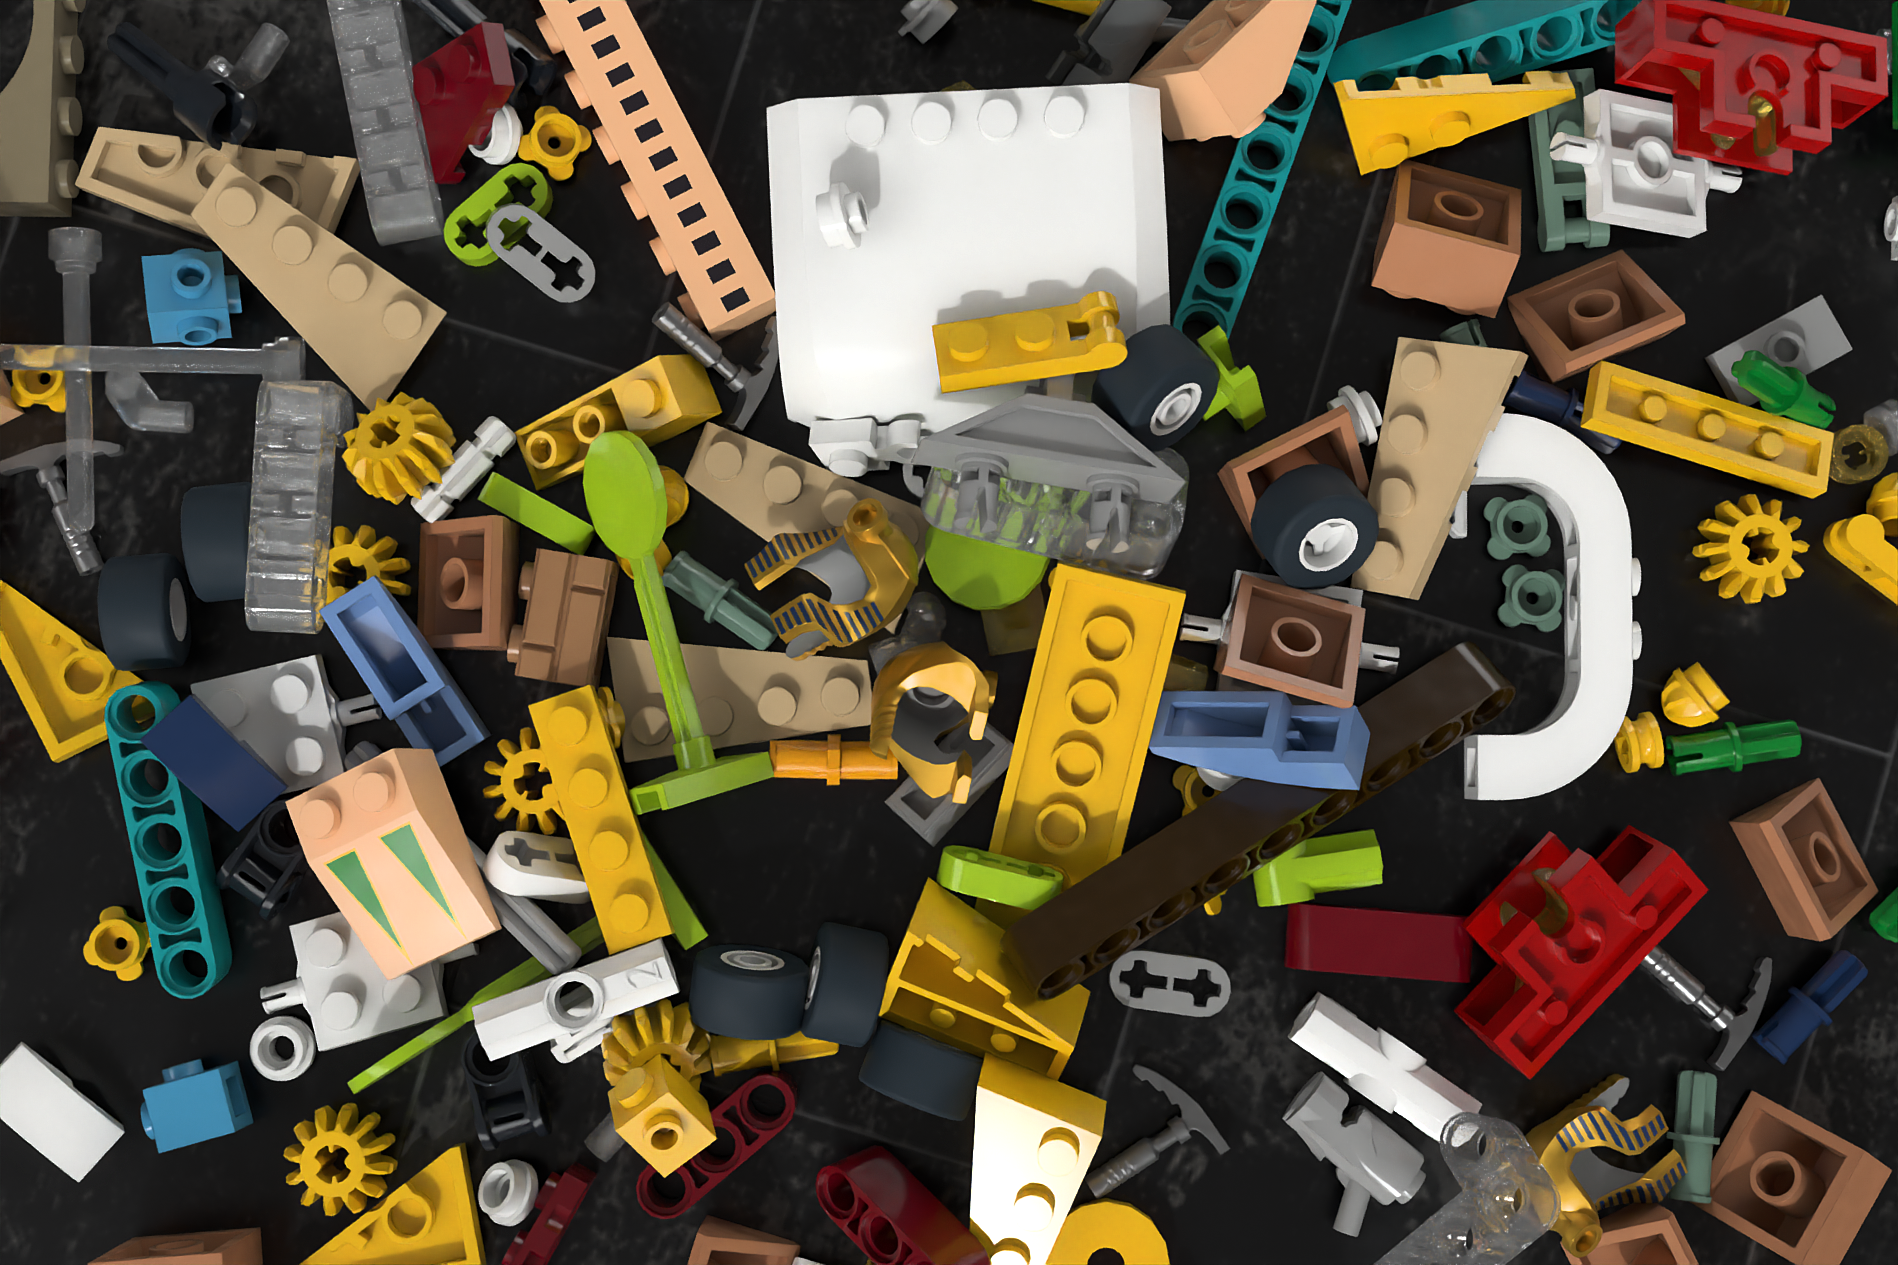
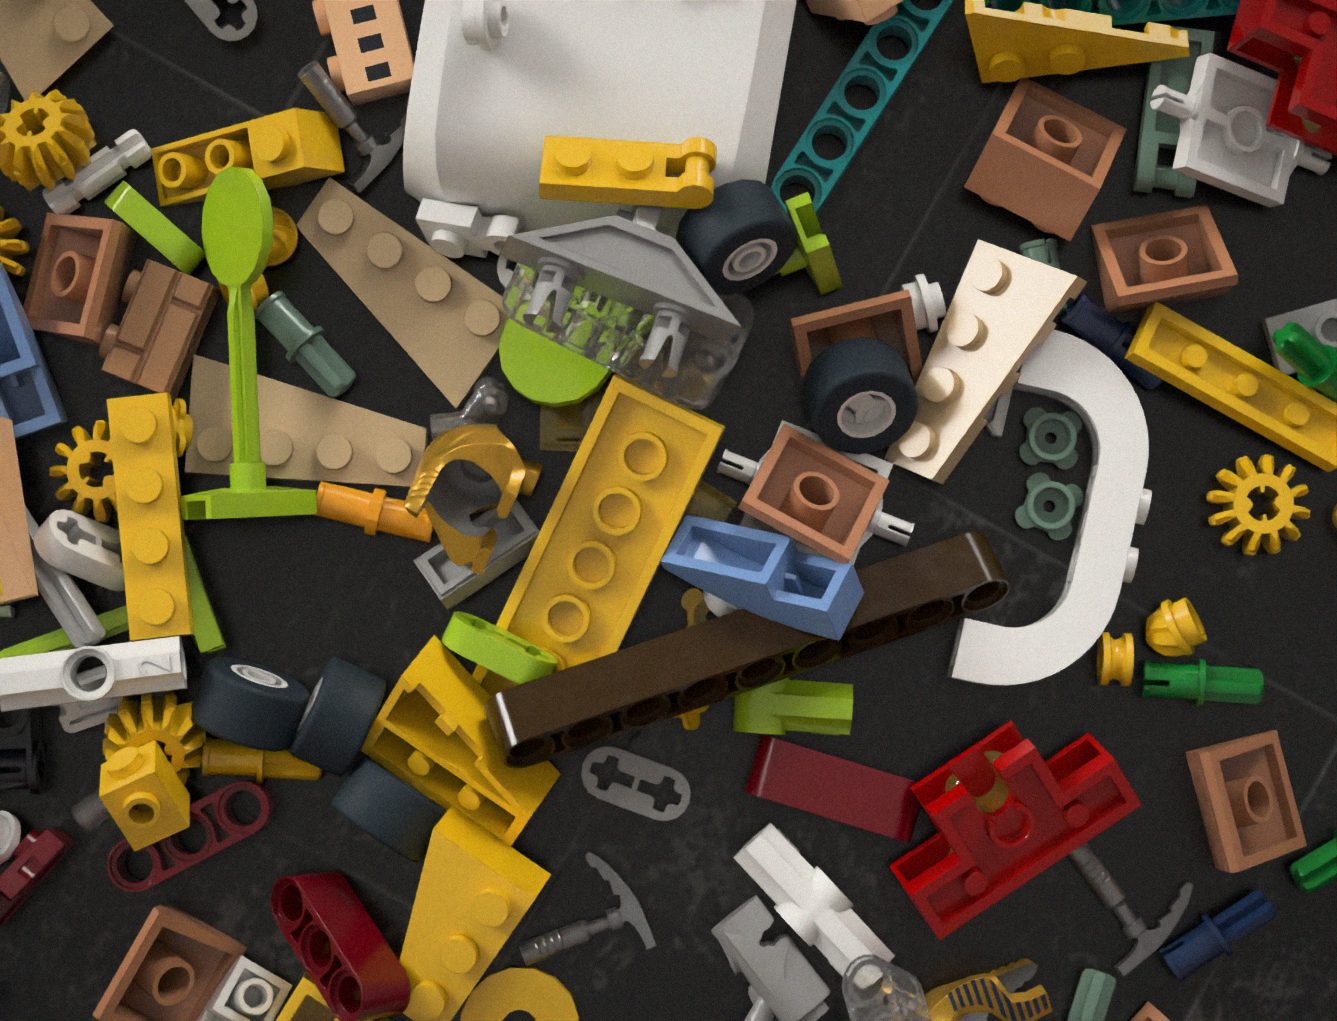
camera: 15 degrees right, 0 degrees up
(865, 565) = (442, 341): pearl gold piece -> none

